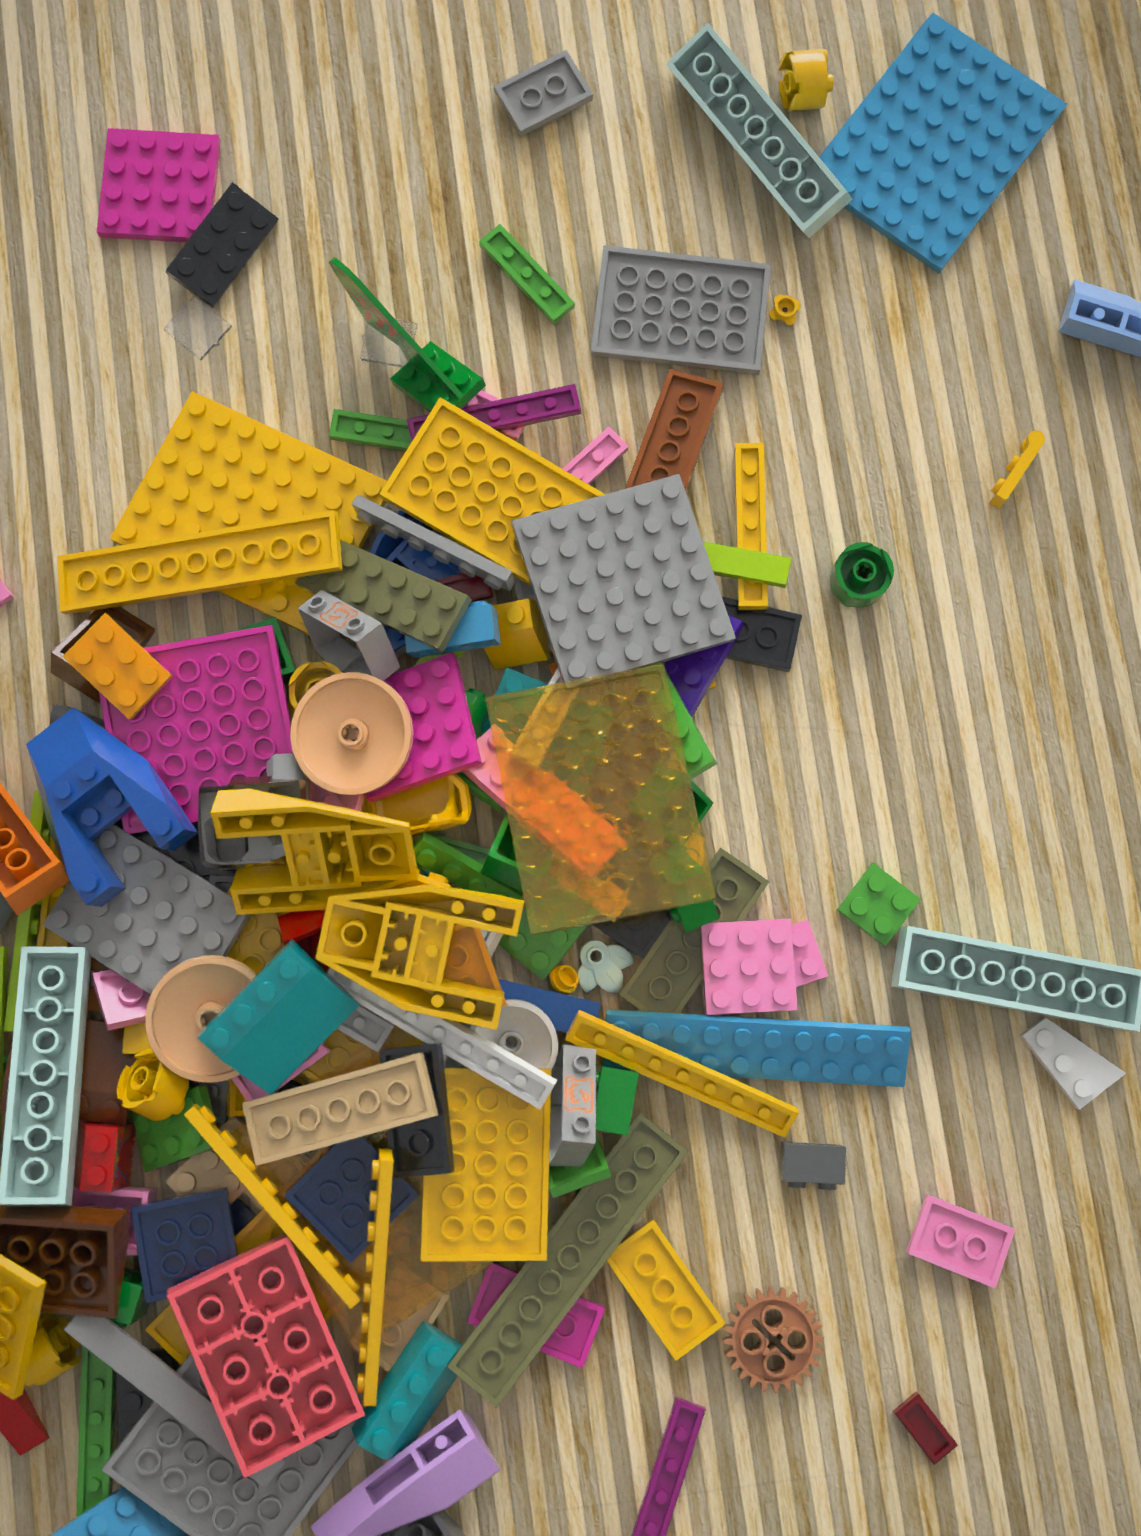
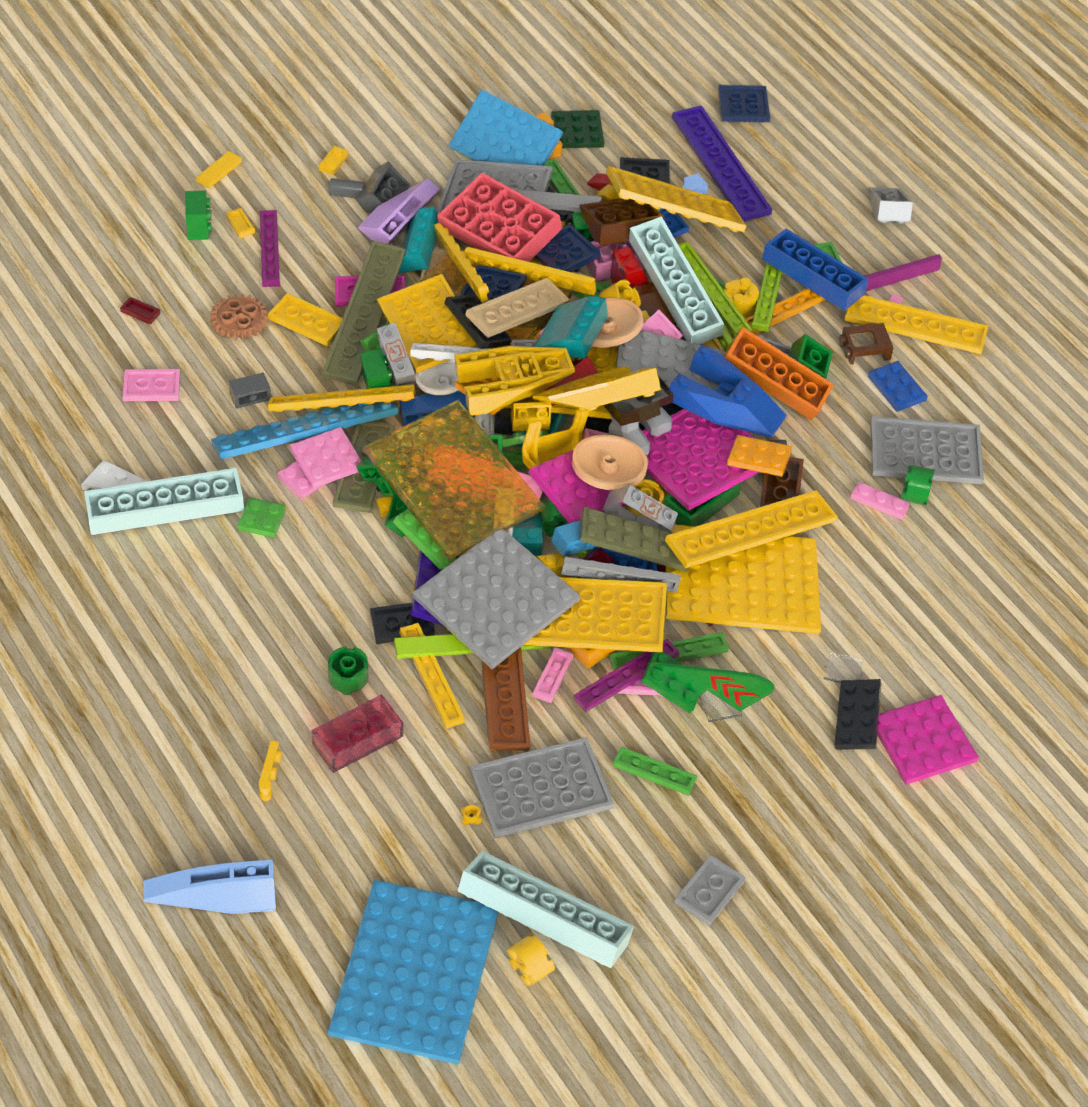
camera: 155 degrees right, 30 degrees down
(887, 470) = (357, 733): none -> clear pink brick

